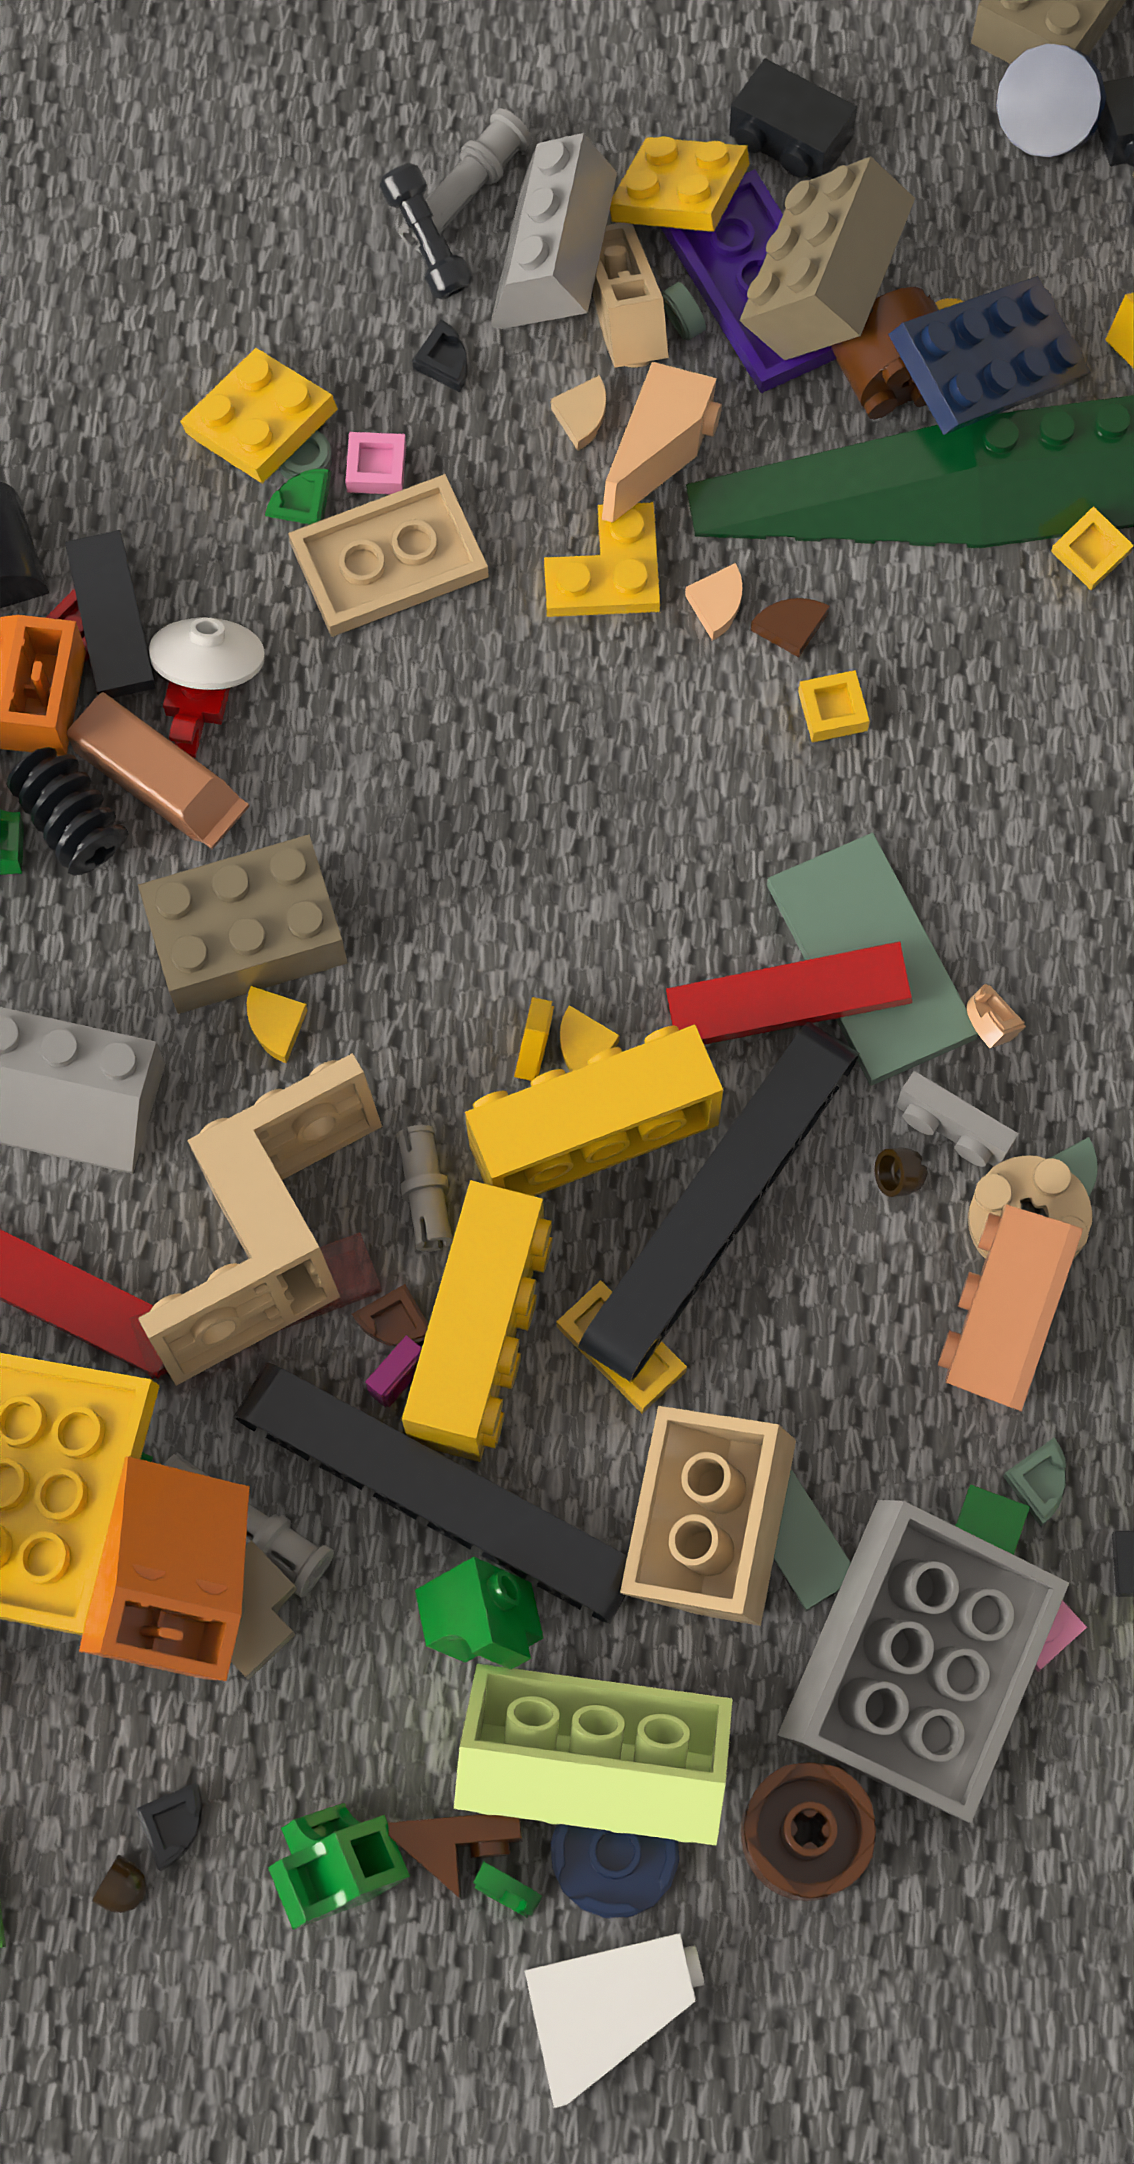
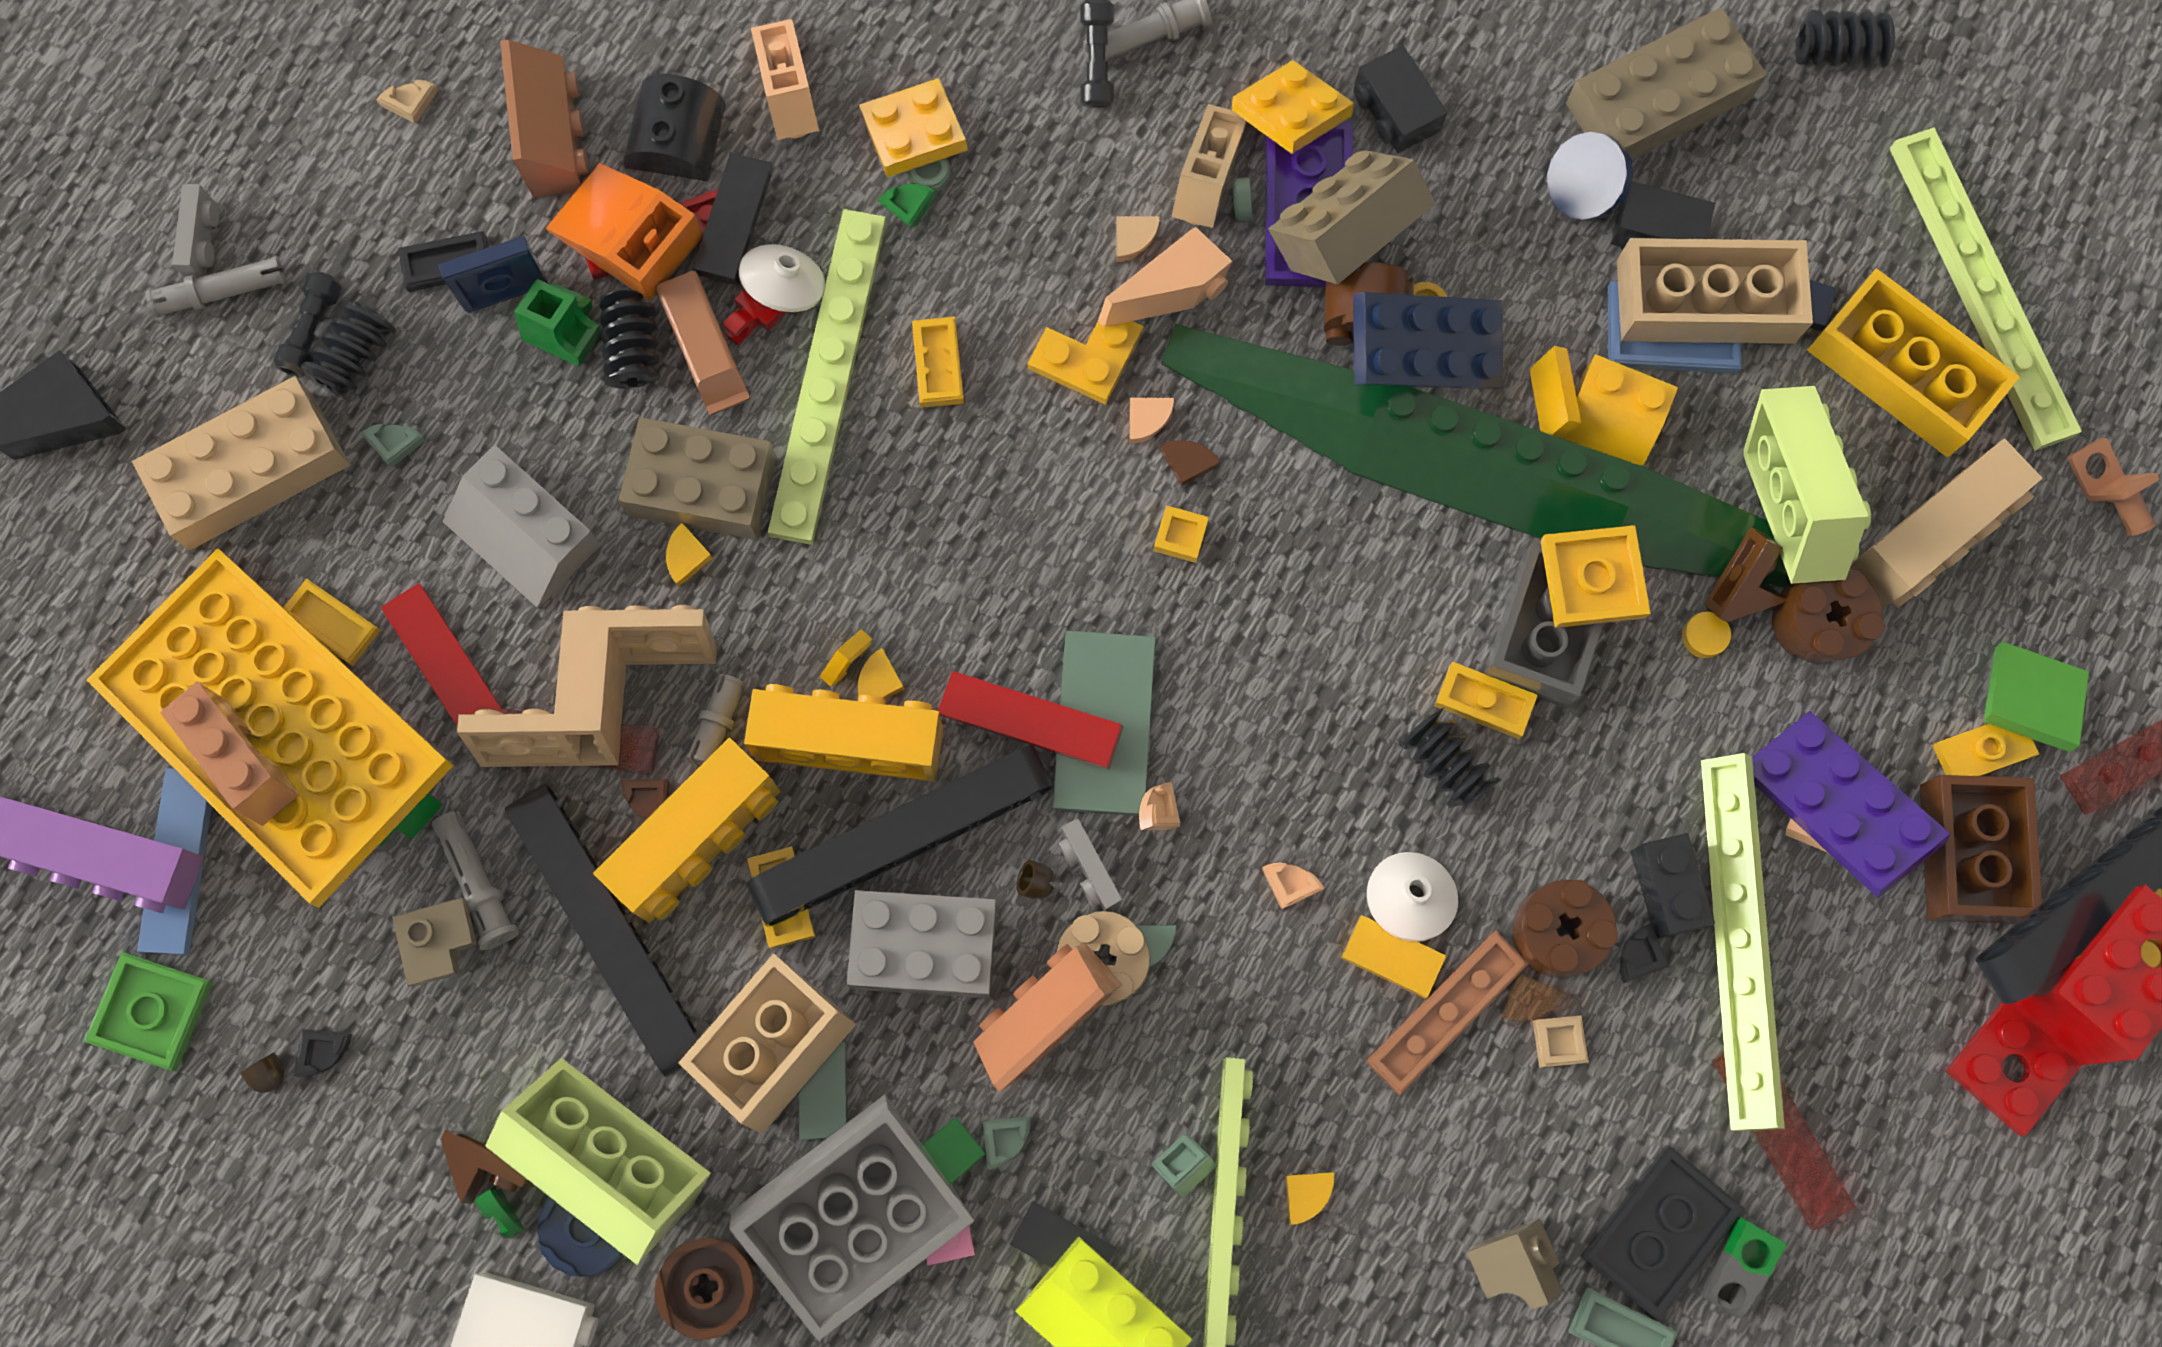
camera: 25 degrees right, 5 degrees up
(79, 434) = (784, 80): none -> light nougat slope
(170, 1572) = (385, 894): orange slope -> none
(323, 741) = (827, 377): none -> yellowish green plate
(335, 1864) = (399, 1137): green brick -> none
(375, 463) = (972, 201): bright pink plate -> none
(388, 555) = (942, 271): tan plate -> none
(394, 1373) = (614, 836): magenta tile -> none
(442, 657) = (937, 362): none -> yellow plate
(443, 357) = (1063, 148): black tile -> none
(480, 1614) = (583, 1028): green brick -> none
(555, 234) = (1183, 101): light grey slope -> none
(820, 1308) = (922, 944): none -> light grey brick
(1092, 548) = (1426, 515): yellow plate -> none

